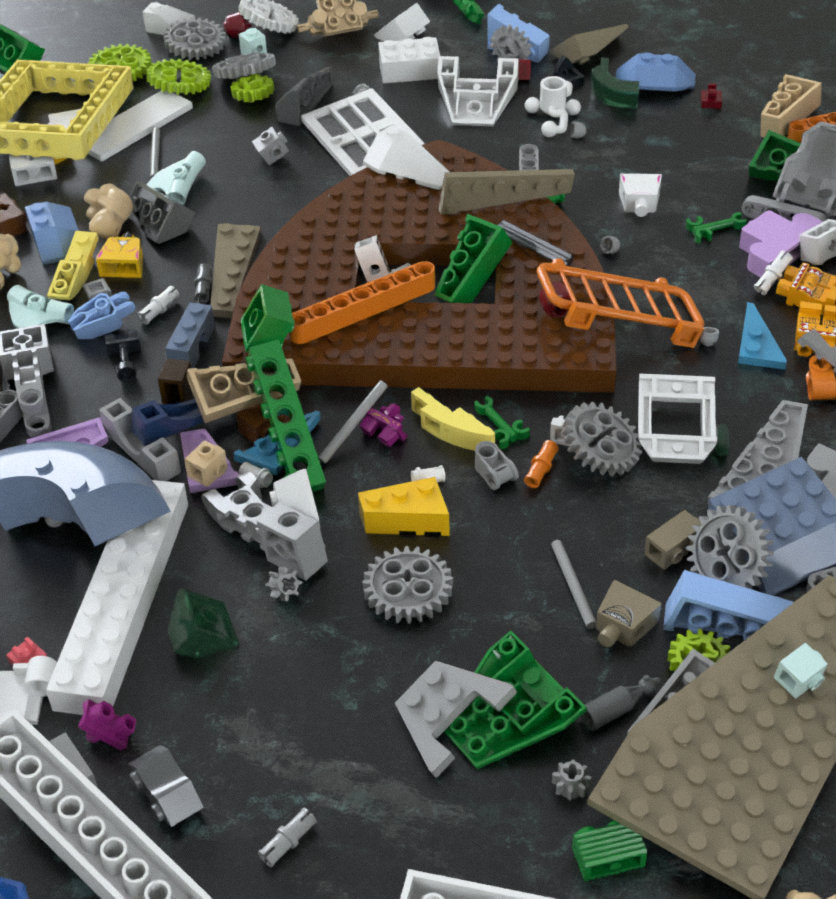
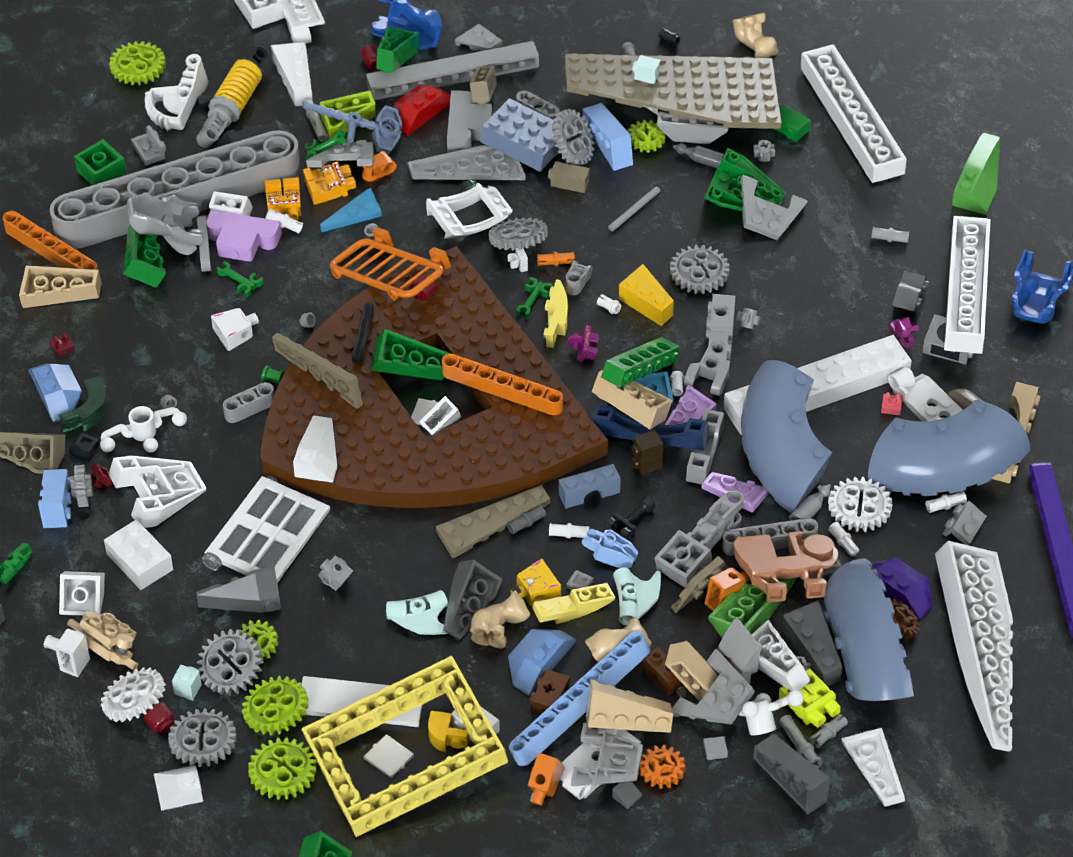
camera: 125 degrees left, 5 degrees up
(155, 144) = (391, 658): light grey bar -> none
(200, 625) = (809, 335): clear green slope -> none
(206, 463) = (698, 395): tan brick -> none
(267, 317) = (573, 406): green brick -> none
(296, 493) = (692, 330): white slope -> none
(352, 422) = (590, 347): light grey bar -> none
(625, 615) = (644, 174): dark tan torso -> none

